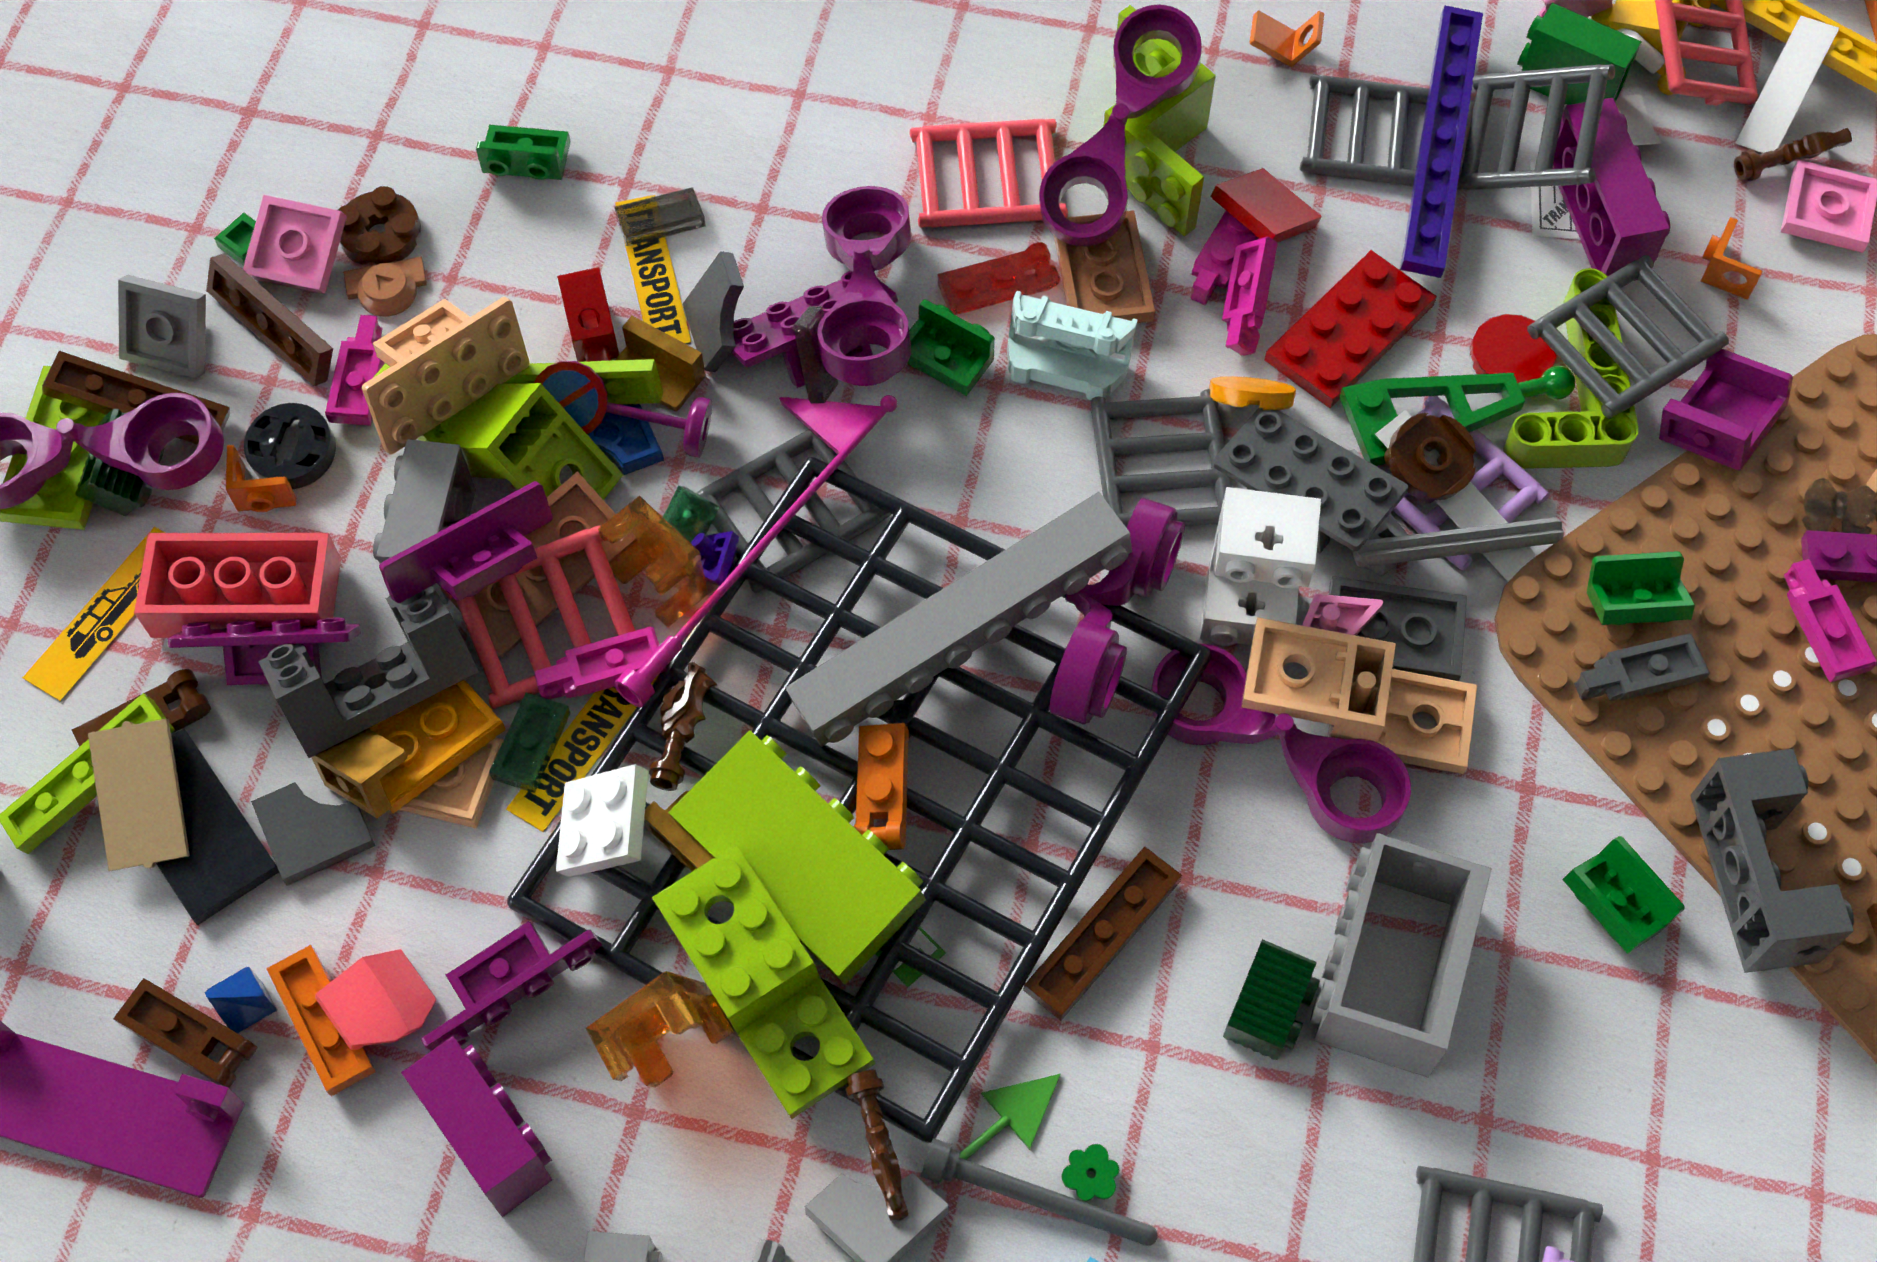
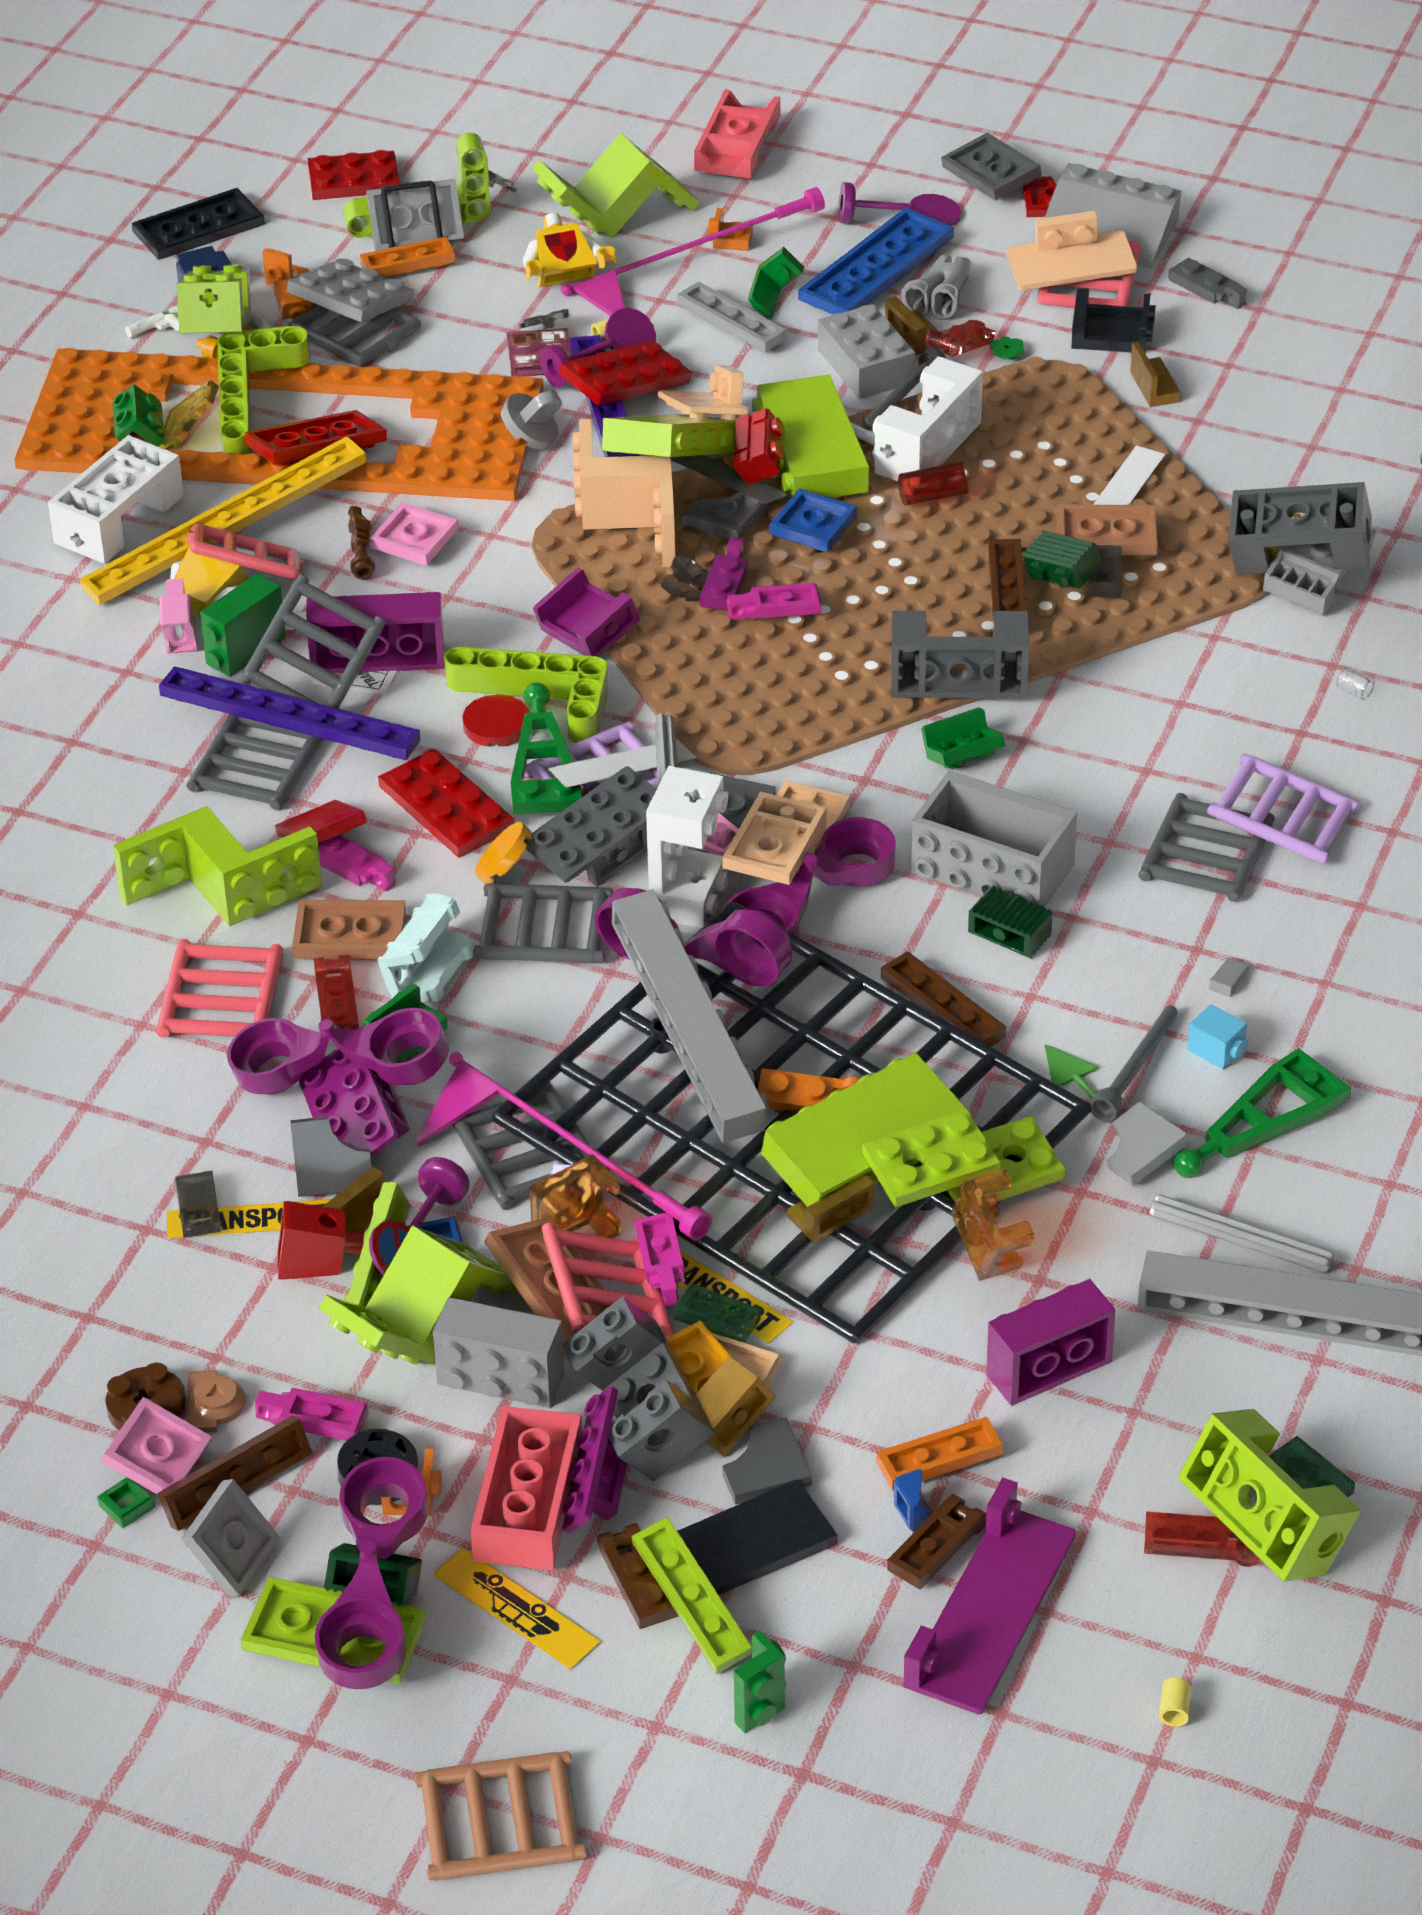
camera: 80 degrees left, 20 degrees down
(106, 389) = (303, 1563): reddish brown plate -> none
(138, 794) = (724, 1548): tan piece -> none
(377, 1000) = (934, 1412): coral slope -> none
(441, 367) = (362, 1291): light nougat bracket -> none
(472, 550) = (570, 1285): magenta bracket -> none
(503, 975) = (927, 1333): magenta bracket -> none
(524, 152) = (98, 1285): green bracket -> none
(602, 821) = (810, 1250): white plate -> none
(680, 713) = (727, 1208): reddish brown piece -> none
(690, 513) = (517, 1200): clear green tile -> none
(817, 379) = (401, 1090): clear smoke tile -> none
(865, 1089) = (1104, 1126): reddish brown piece -> none
(1092, 1160) = (1122, 1033): green plant -> none
(1102, 157) = (272, 881): magenta piece -> none
(1248, 293) = (402, 844): dark pink hinge -> none
(1283, 41) = (144, 793): orange bracket -> none
(1423, 479) = (591, 761): reddish brown plate -> none
(1639, 588) = (731, 684): green bracket -> none
(1644, 669) = (794, 693): dark grey hinge -> none
(1645, 382) = (545, 621): dark grey bar -> none
(1720, 264) = (452, 596): orange bracket -> none
(1787, 85) = (298, 528): white sticker -> none

